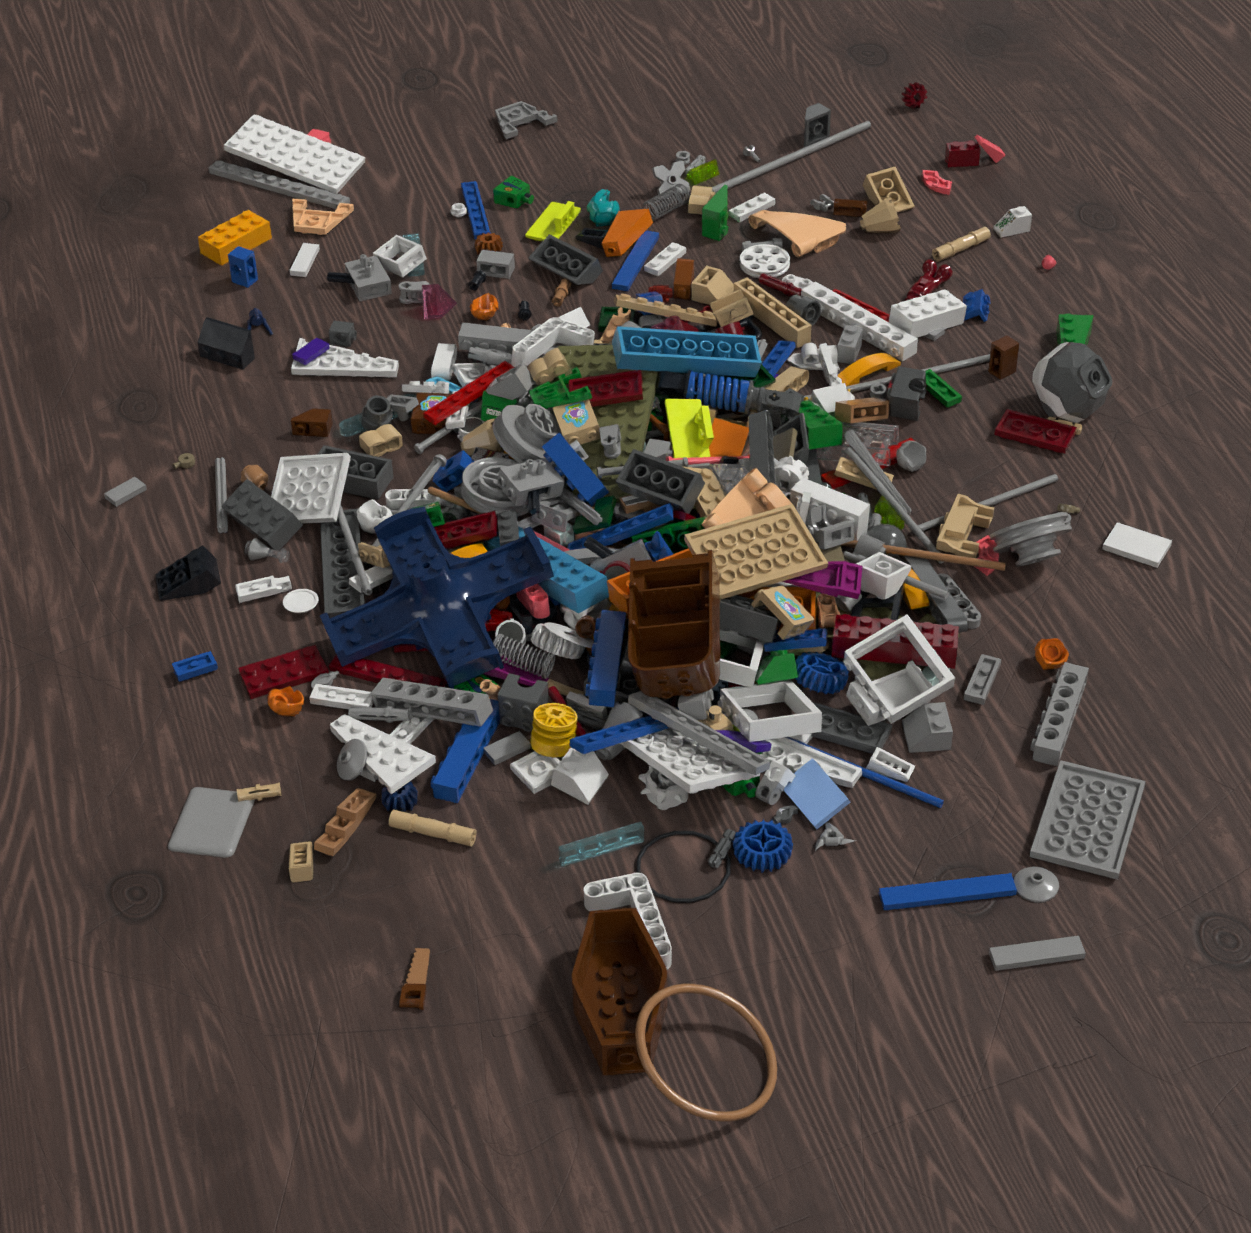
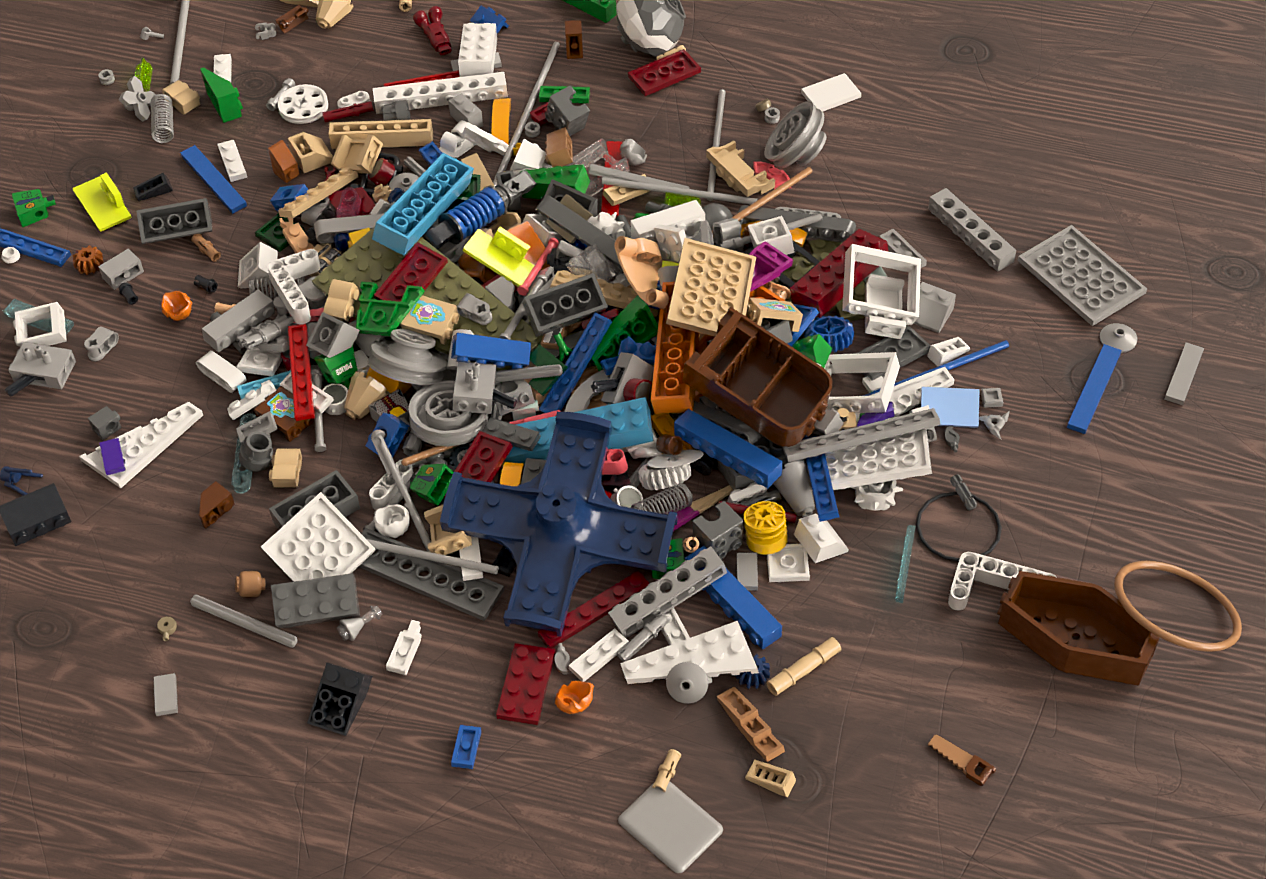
camera: 55 degrees left, 10 degrees up
(300, 600) = (448, 627): white piece -> none
(436, 301) = (130, 337): clear pink slope -> none
(601, 210) = (128, 163): teal helmet -> none
(625, 510) = (563, 348): none -> green bar
(626, 230) = (171, 159): orange slope -> none
(664, 290) = (279, 181): clear red brick -> none
(696, 162) = (125, 74): light grey axle -> none
(776, 848) = (979, 466): blue gear -> none
(804, 230) = (299, 56): light nougat panel -> none
(862, 822) = (992, 397): none -> light grey tile
(1051, 653) = (910, 199): orange hair -> none

